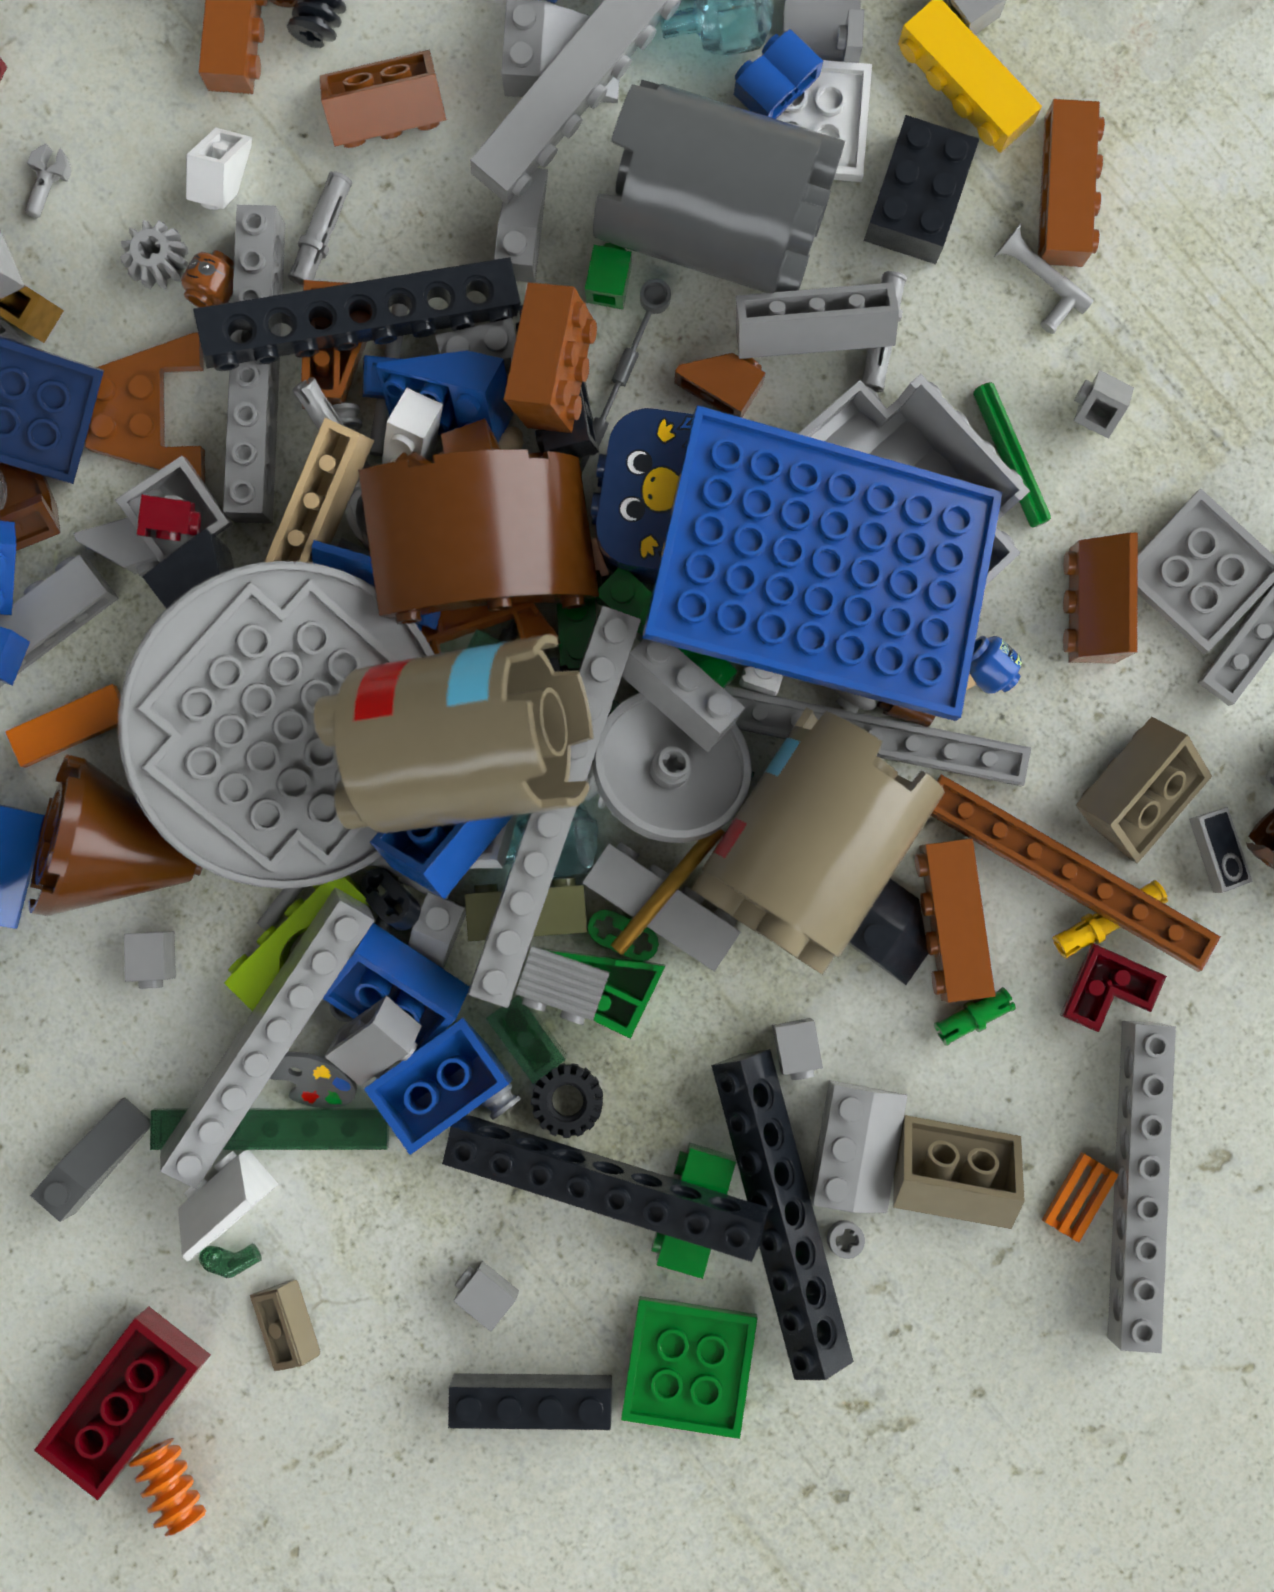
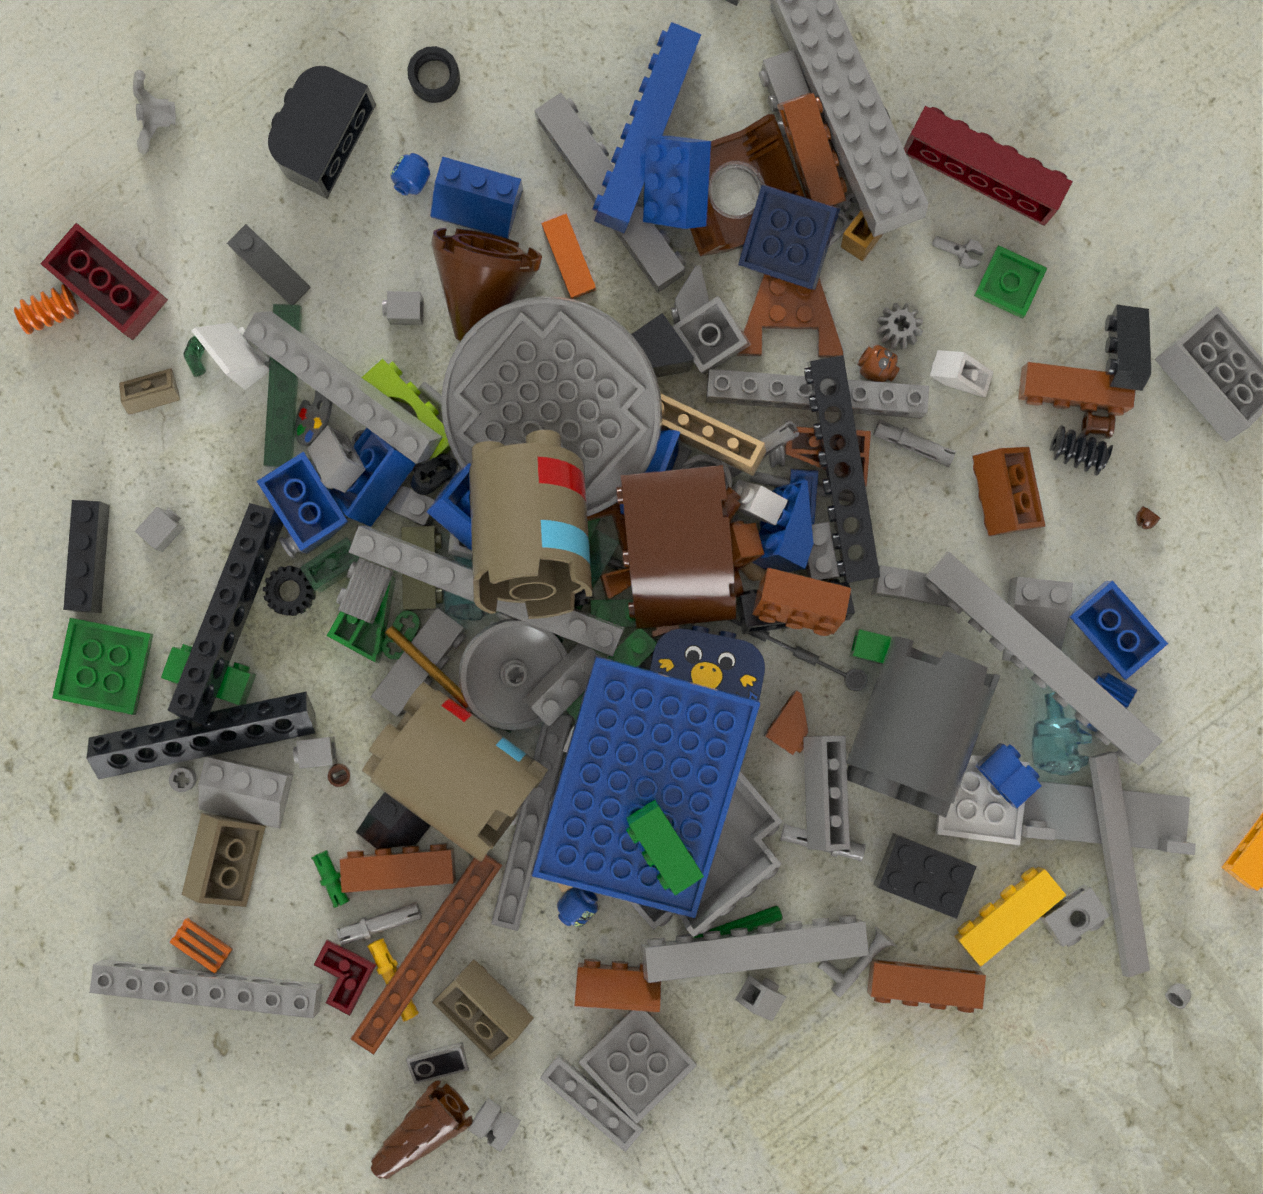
camera: 90 degrees right, 0 degrees up
(87, 106) = (1010, 281): none -> green plate
(168, 517) = (702, 332): dark red brick -> none
(833, 1009) = (340, 780): none -> reddish brown hinge
(910, 531) = (663, 848): none -> green brick
(1038, 414) = (754, 949): none -> light grey brick
(1039, 957) = (378, 924): none -> light grey pin

